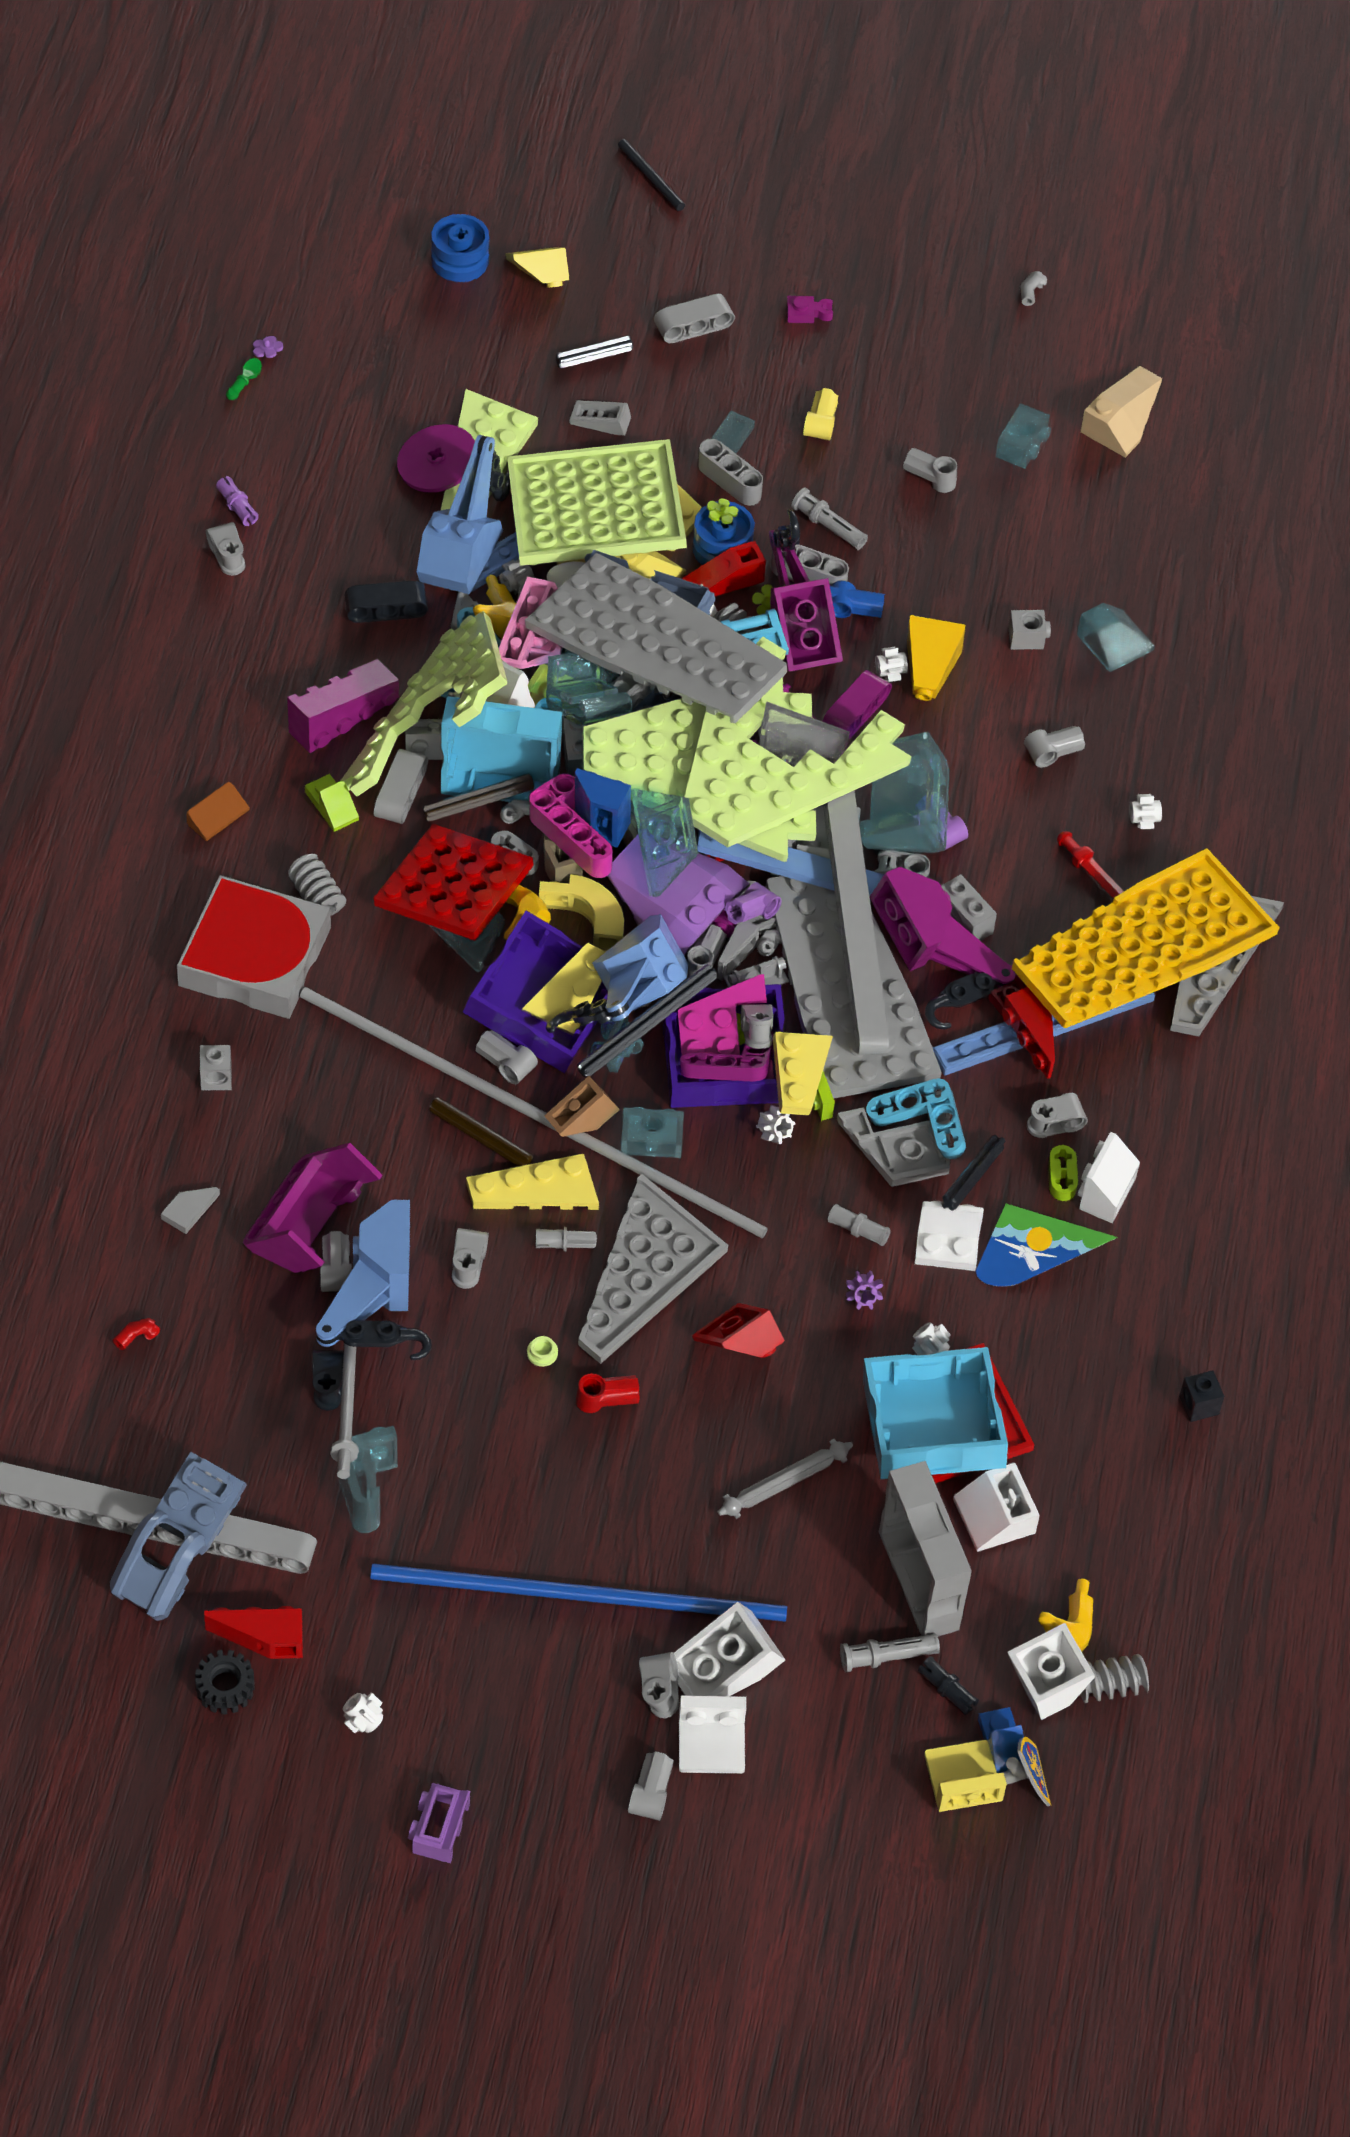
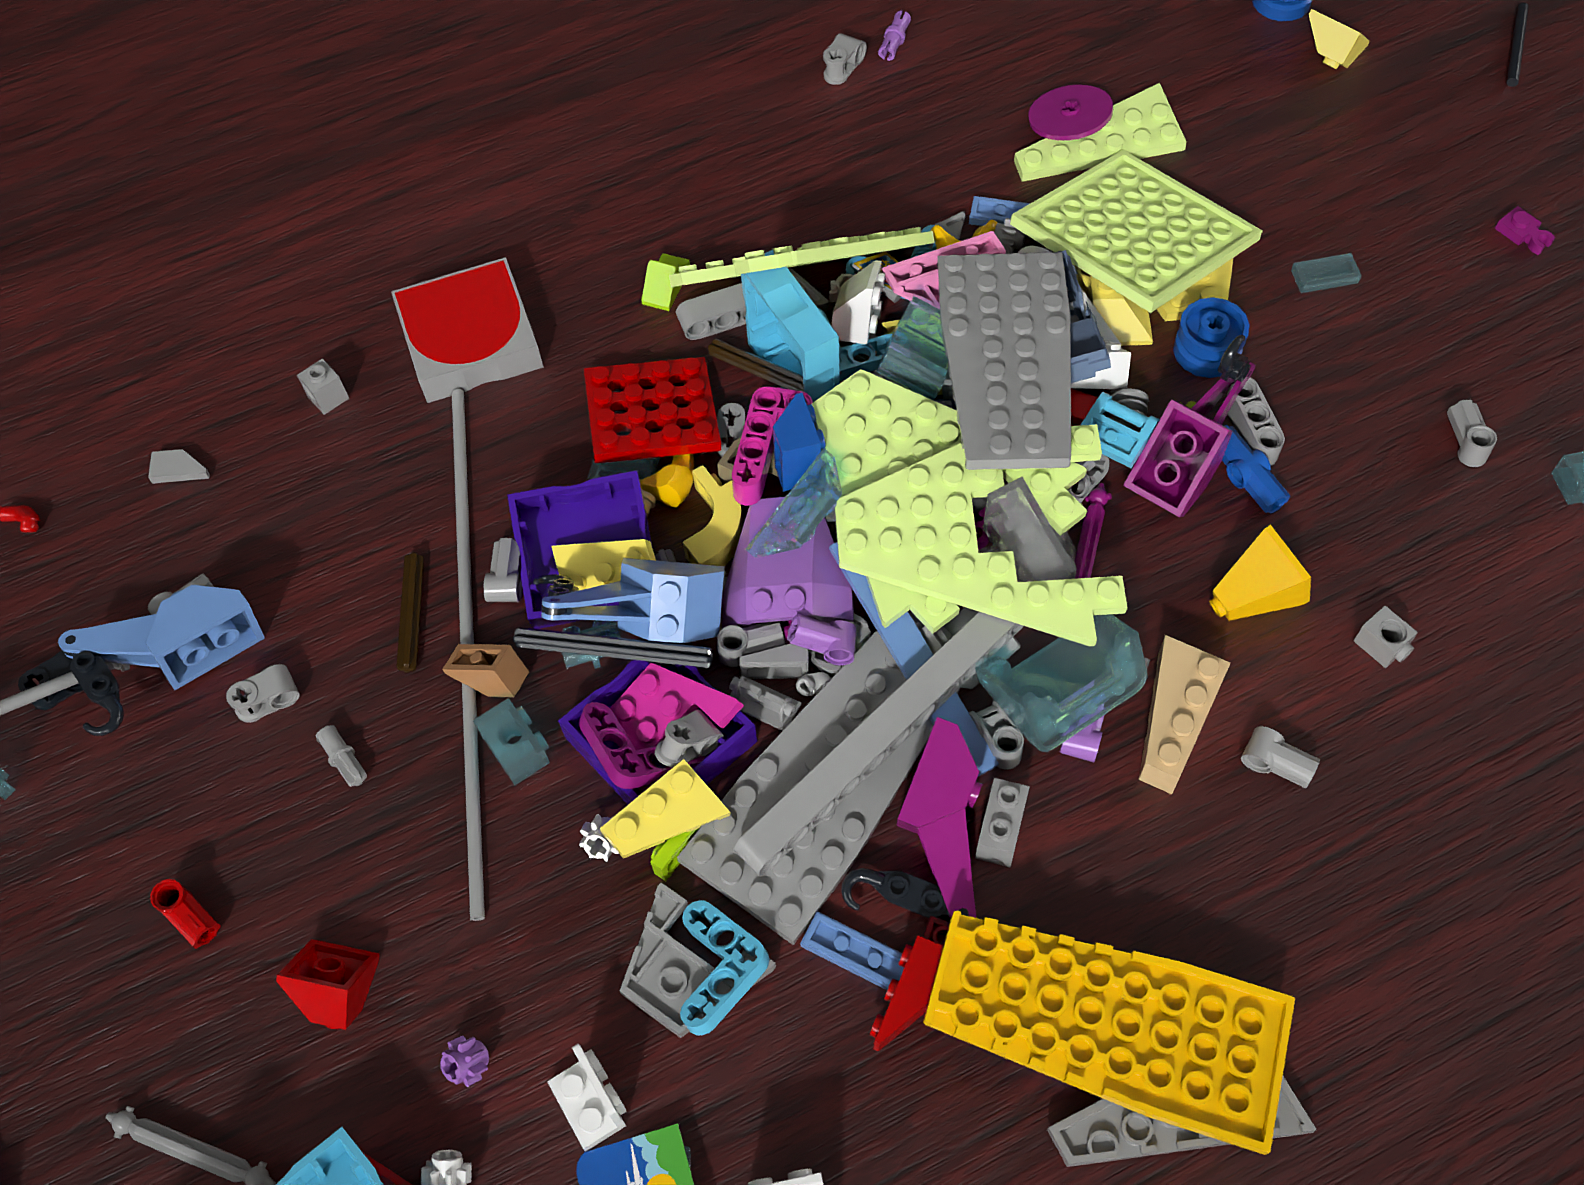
camera: 60 degrees right, 5 degrees up
(216, 811) = (585, 220): dark orange slope -> none
(305, 1204) = (210, 544): magenta windscreen -> none
(315, 883) = (563, 325): light grey piece -> none
(340, 704) = (757, 217): magenta wedge -> none
(386, 601) = (895, 178): black beam -> none
(462, 537) = (1003, 172): medium blue slope -> none
(542, 1351) = (201, 826): yellowish green plate -> none
(547, 1183) = (391, 697): light yellow wing -> none
(594, 351) = (1297, 131): axle -> none
(616, 423) = (1242, 183): light grey slope -> none
(651, 1263) = (365, 848): light grey wing -> none
(694, 318) = (1412, 164): light grey beam -> none
(722, 511) = (1223, 311): lime plant -> none
(730, 472) = (1286, 296): light grey beam -> none
(731, 570) = (1176, 366): red slope -> none
(819, 512) = (1323, 376): light grey pin -> none
(821, 419) = (1419, 319): light yellow piece -> none
(858, 702) = (1148, 562): magenta beam -> none
(859, 1225) = (547, 998): light grey pin -> none
(891, 664) = (1219, 556): white gear -> none
(973, 1172) = (669, 1064): black axle -> none
(980, 769) = (1179, 706): none -> tan wedge
(1058, 1113) = (839, 1099): light grey piece -> none
(1069, 1172) = (765, 1144): lime beam -> none
(1084, 858) = (1177, 884): red sword -> none
(1112, 636) = (1467, 716): clear light blue slope -> none
(1145, 811) = (1287, 901): white gear -> none

